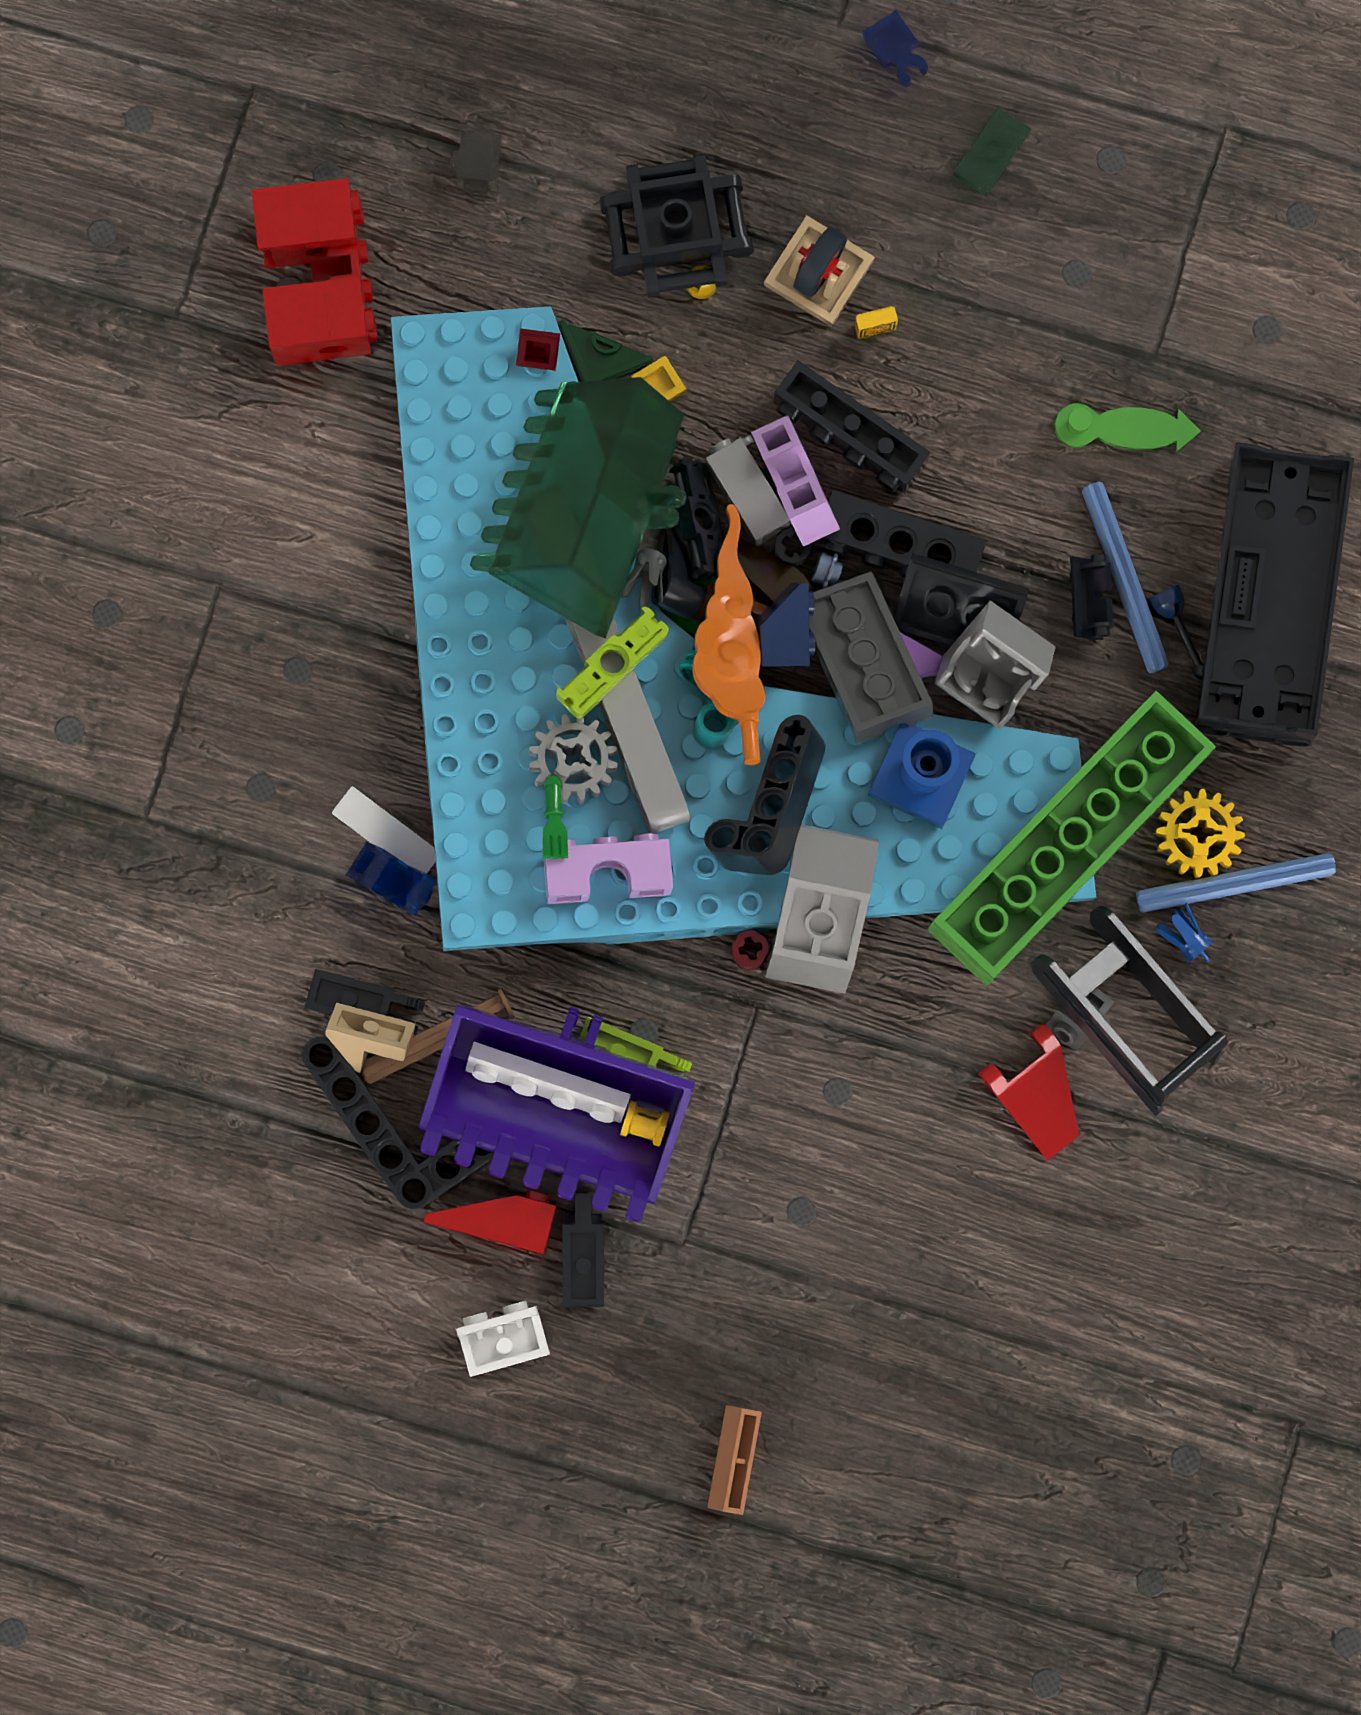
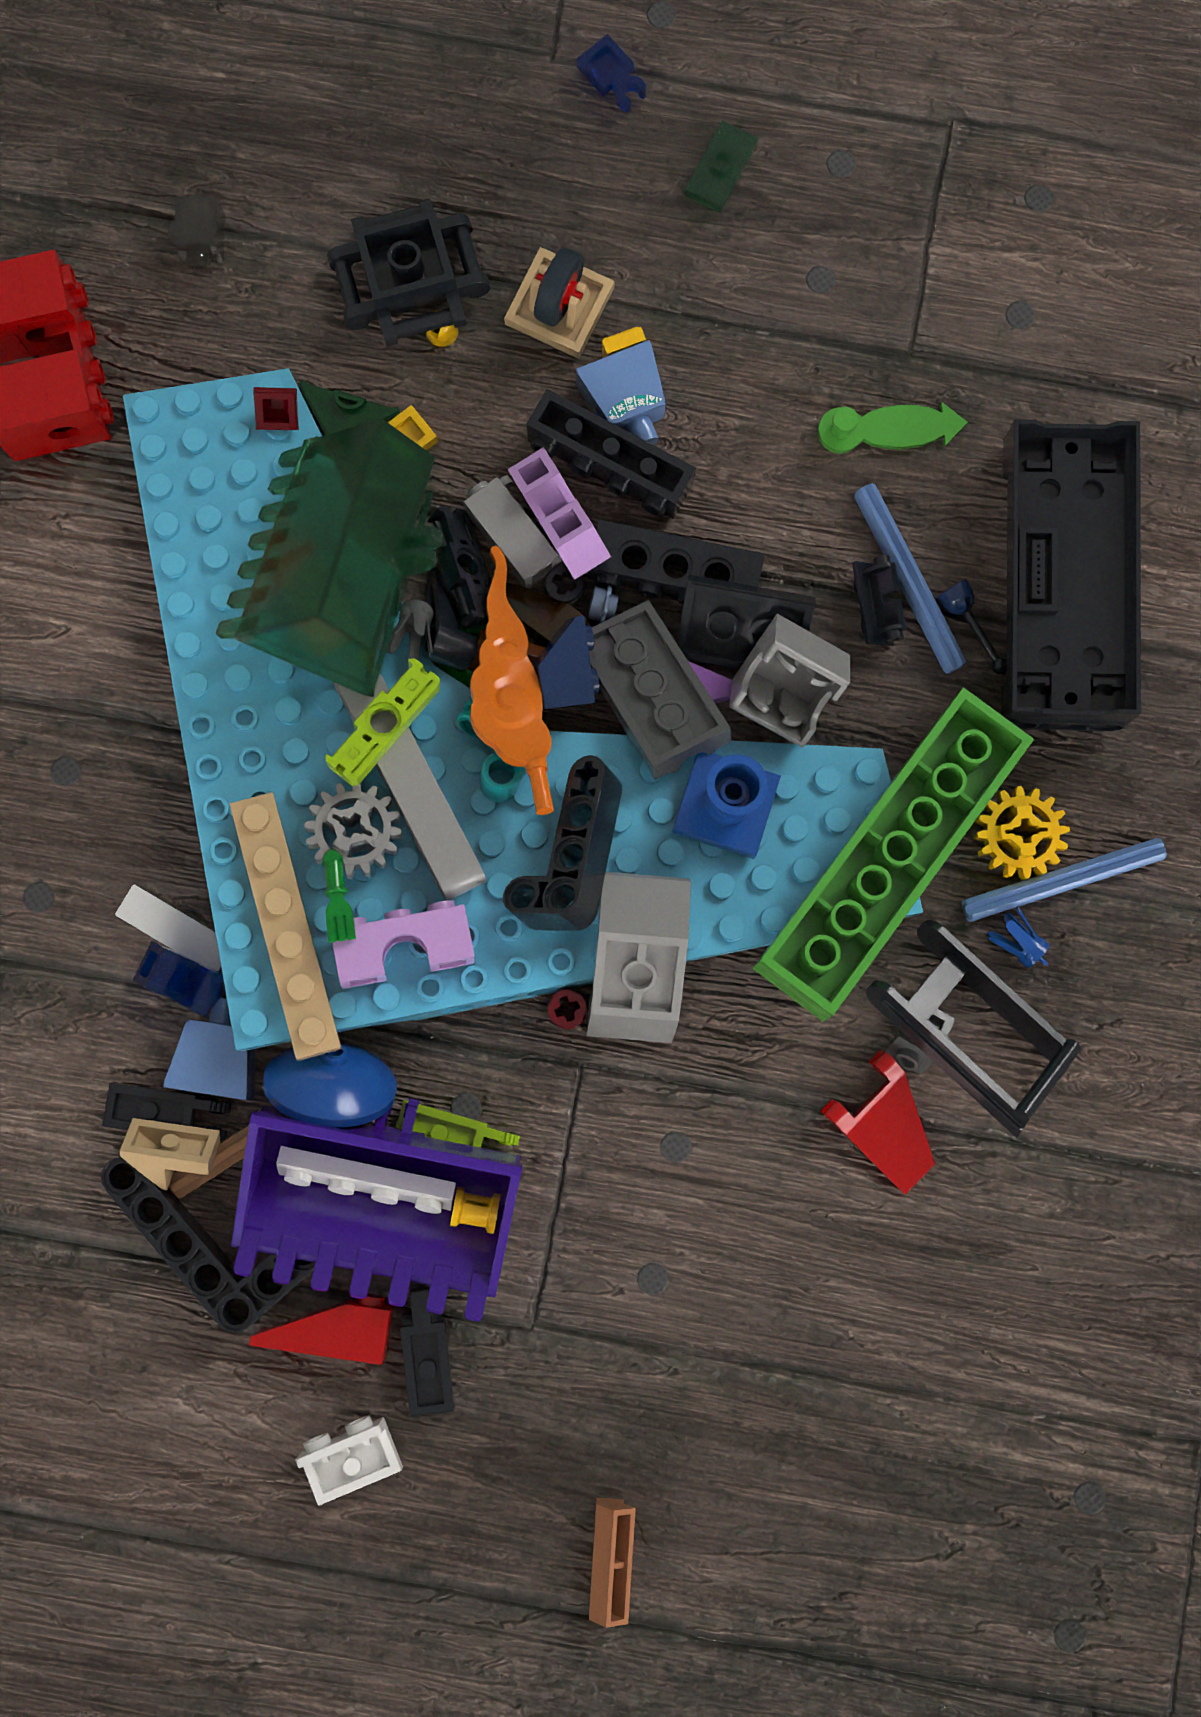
camera: 10 degrees left, 0 degrees up
(414, 956) = (208, 1059): none -> medium blue torso
(500, 840) = (285, 927): none -> tan plate
(524, 990) = (331, 1088): none -> blue dish
(873, 367) = (625, 390): none -> medium blue torso

